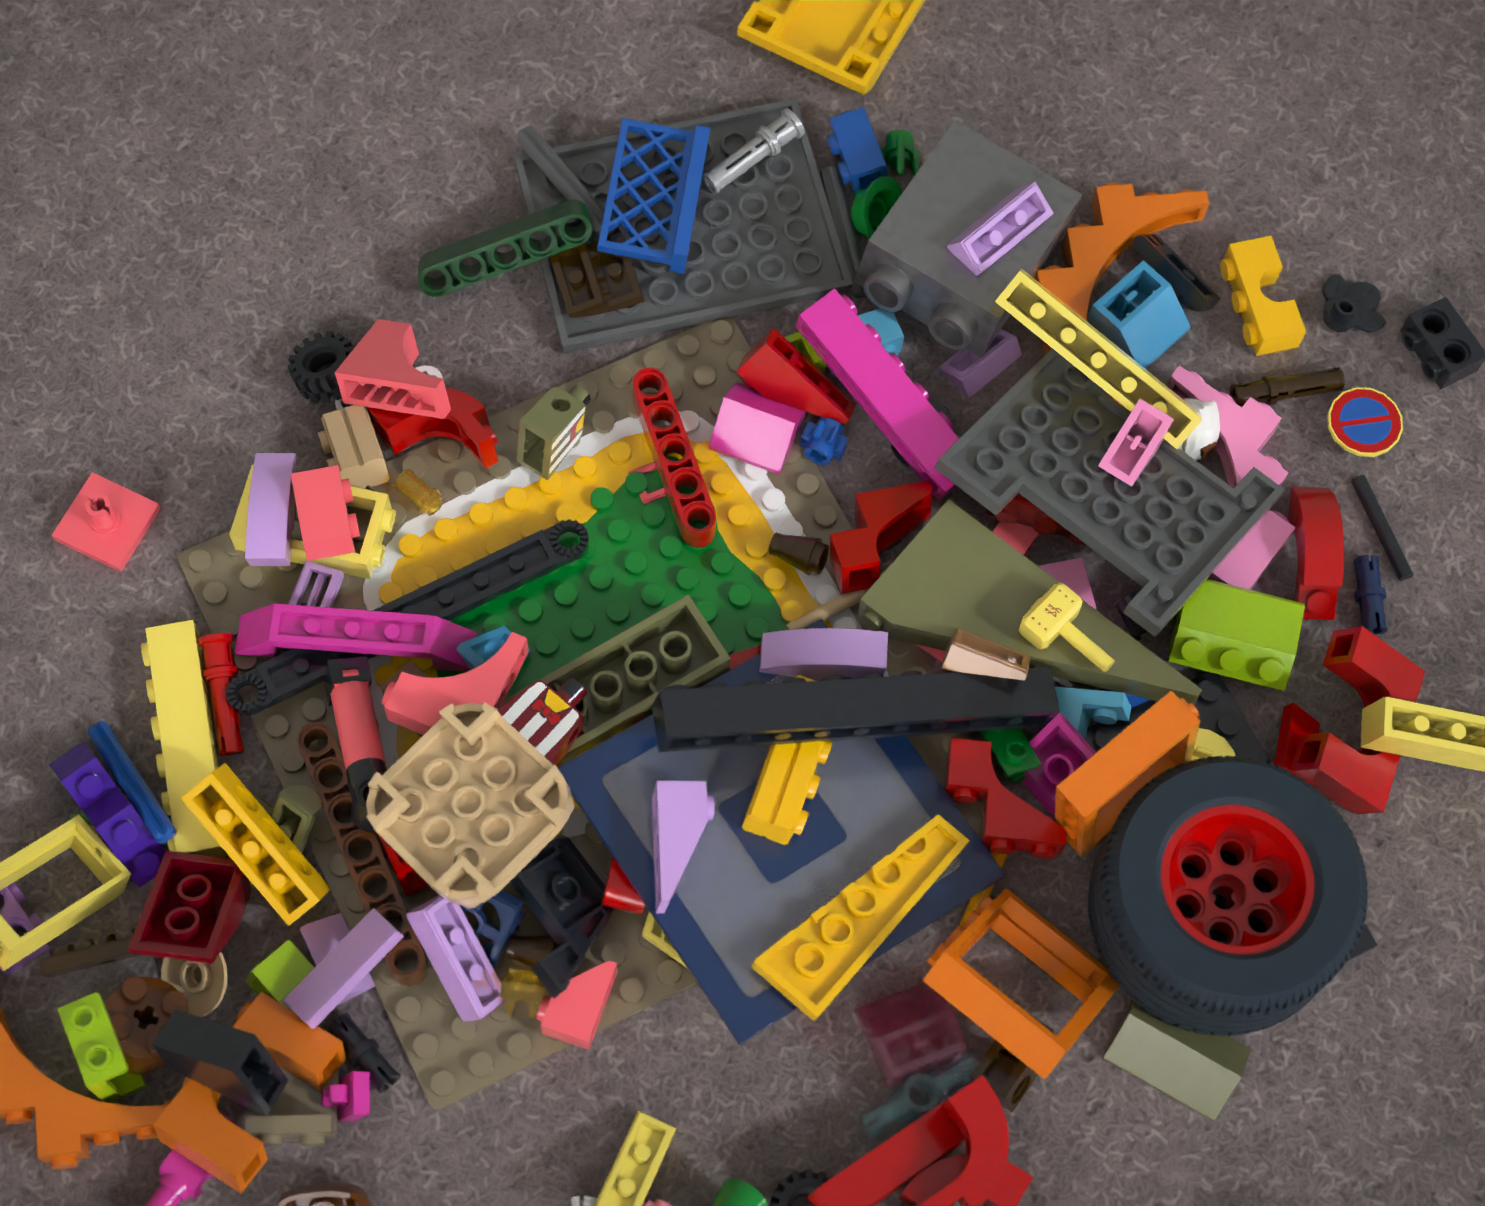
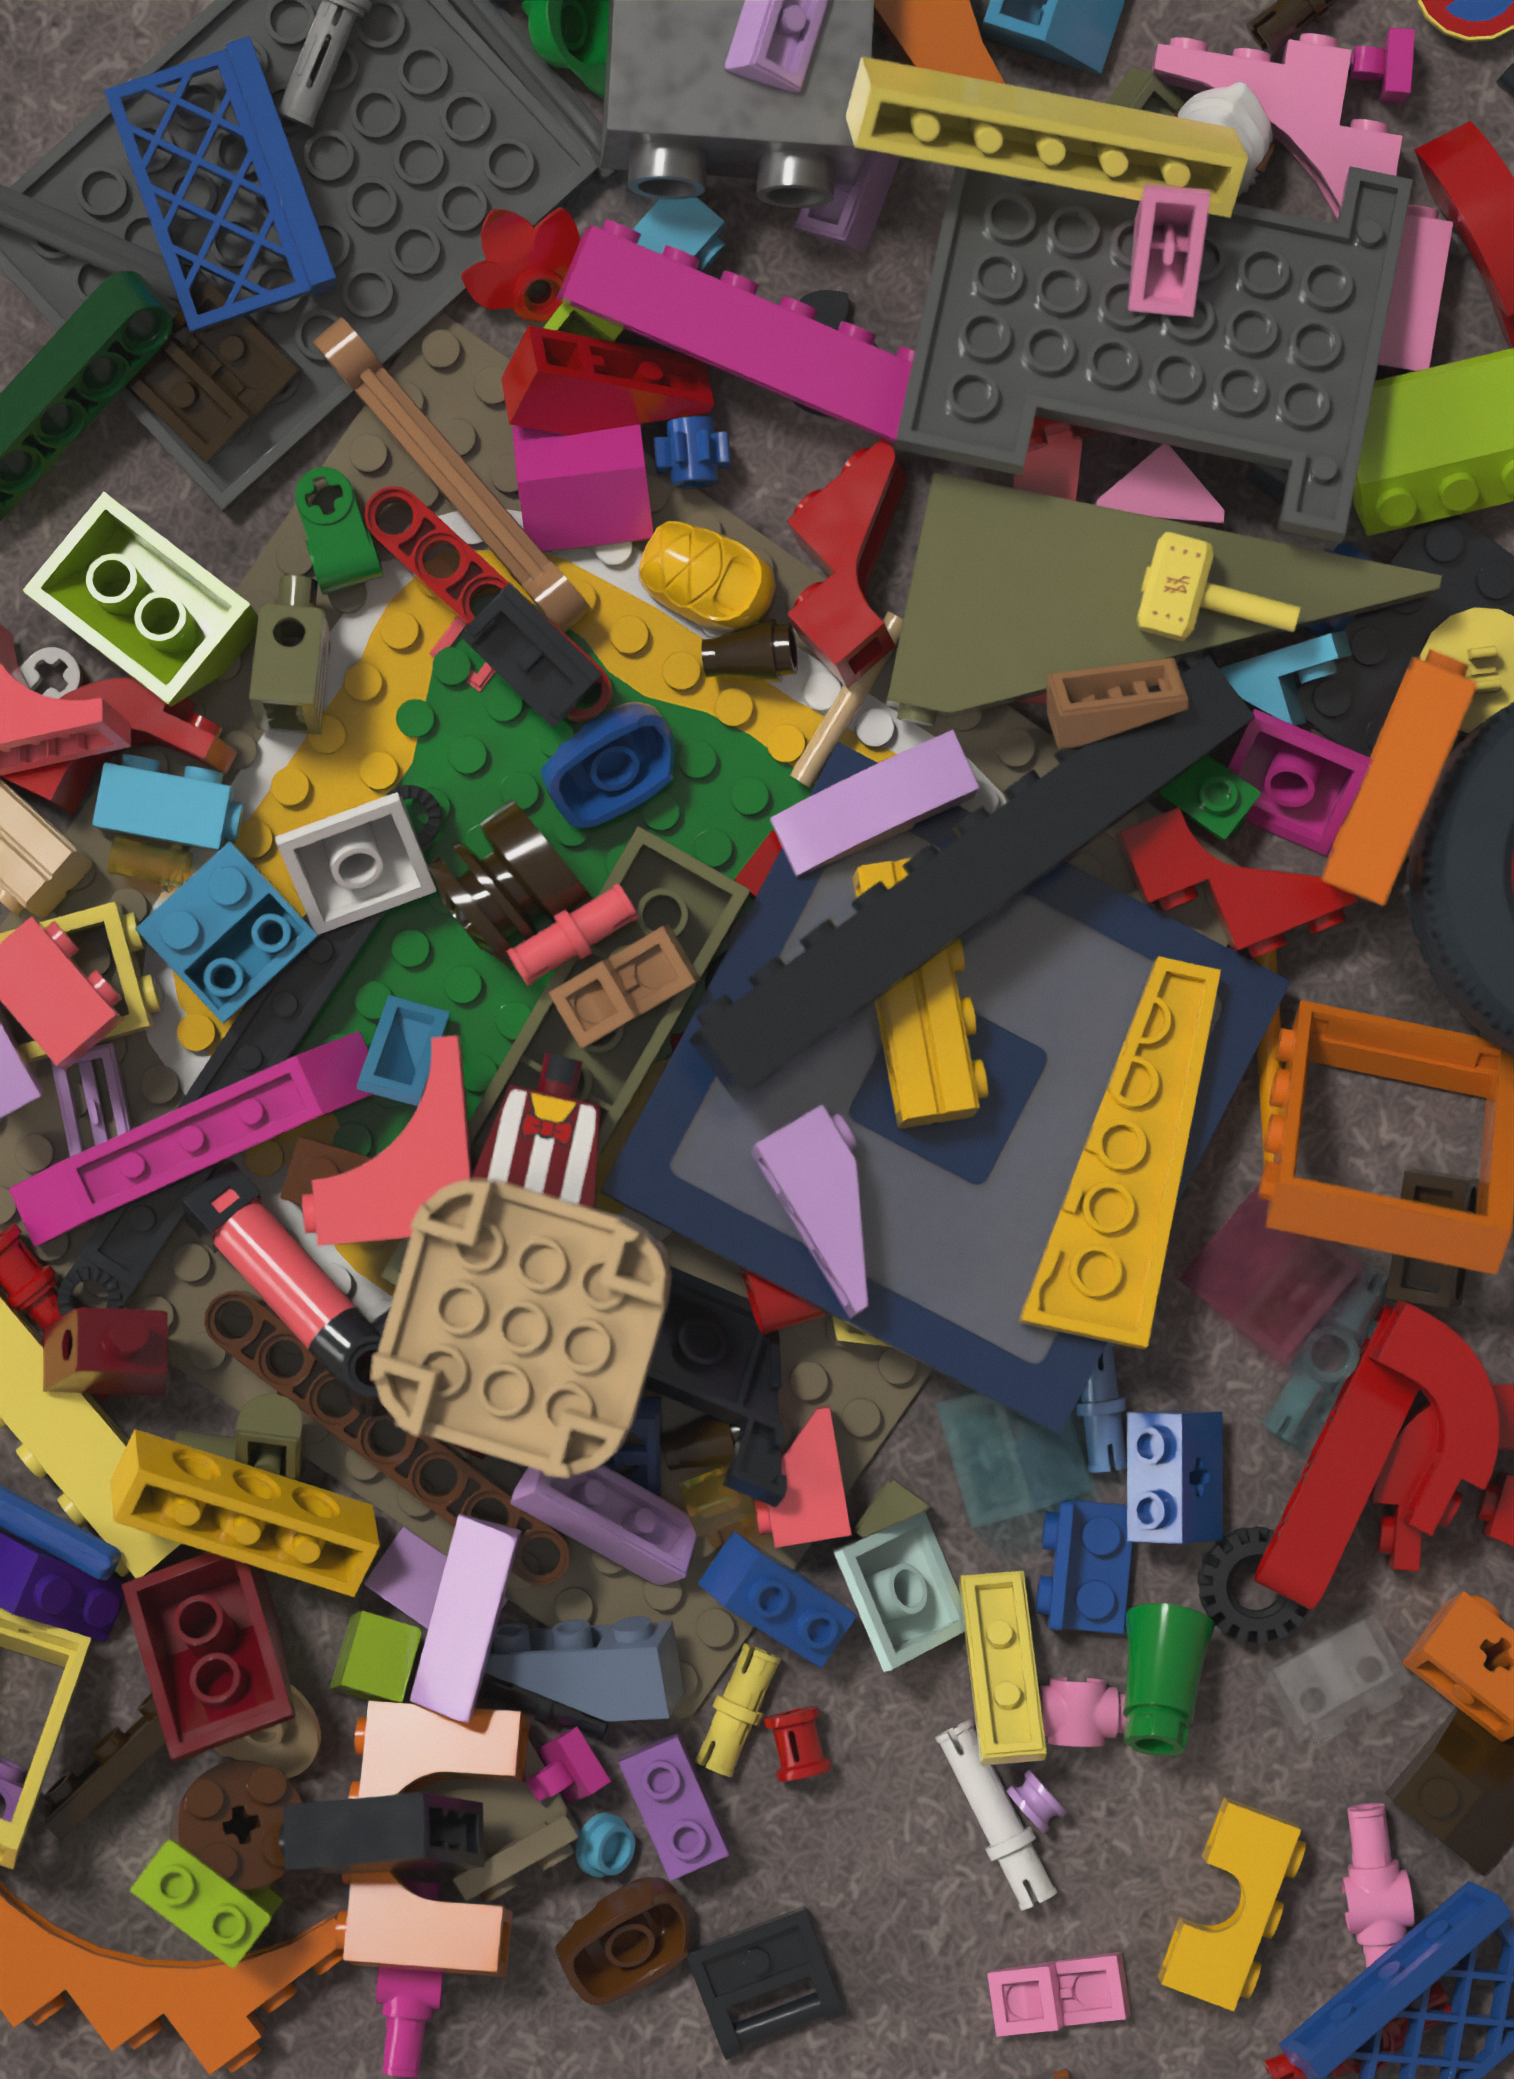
camera: 25 degrees left, 20 degrees up
(240, 720) = (110, 1352): none -> dark red torso
(344, 1154) = (604, 1846): none -> medium azure plate
(397, 1150) = (674, 1805): none -> medium lavender brick
(401, 1048) = (600, 1669): none -> sand blue slope
(436, 538) = (227, 931): none -> dark azure slope
(443, 466) = (167, 807): none -> medium azure brick
(466, 1119) = (737, 1710): none -> light yellow pin
(489, 1156) = (798, 1743): none -> red bush
(495, 360) = (143, 603): none -> lime slope
(525, 1060) = (777, 1599): none -> blue brick
(527, 536) = (356, 863): none -> white slope
(599, 1098) = (902, 1590): none -> light aqua slope
(602, 593) = (508, 884): none -> dark brown wheel
(613, 385) = (339, 541): none -> green piece
(618, 1047) = (888, 1507): none -> olive slope
(620, 626) = (572, 934): none -> coral pin
(632, 670) = (624, 986): none -> medium nougat slope
(675, 315) = (451, 475): none -> medium nougat piece
(682, 481) = (532, 655): none -> black hinge
(691, 565) = (611, 765): none -> blue piece
(704, 1054) = (1006, 1460): none -> clear light blue slope
(714, 1146) = (1087, 1567): none -> blue bracket
(772, 1058) = (1102, 1416): none -> medium blue pin
(784, 303) = (517, 257): none -> red plate
(793, 1116) = (1174, 1476): none -> blue brick
(796, 502) = (706, 577): none -> yellow piece
(1295, 440) = (1388, 65): none -> dark pink tile

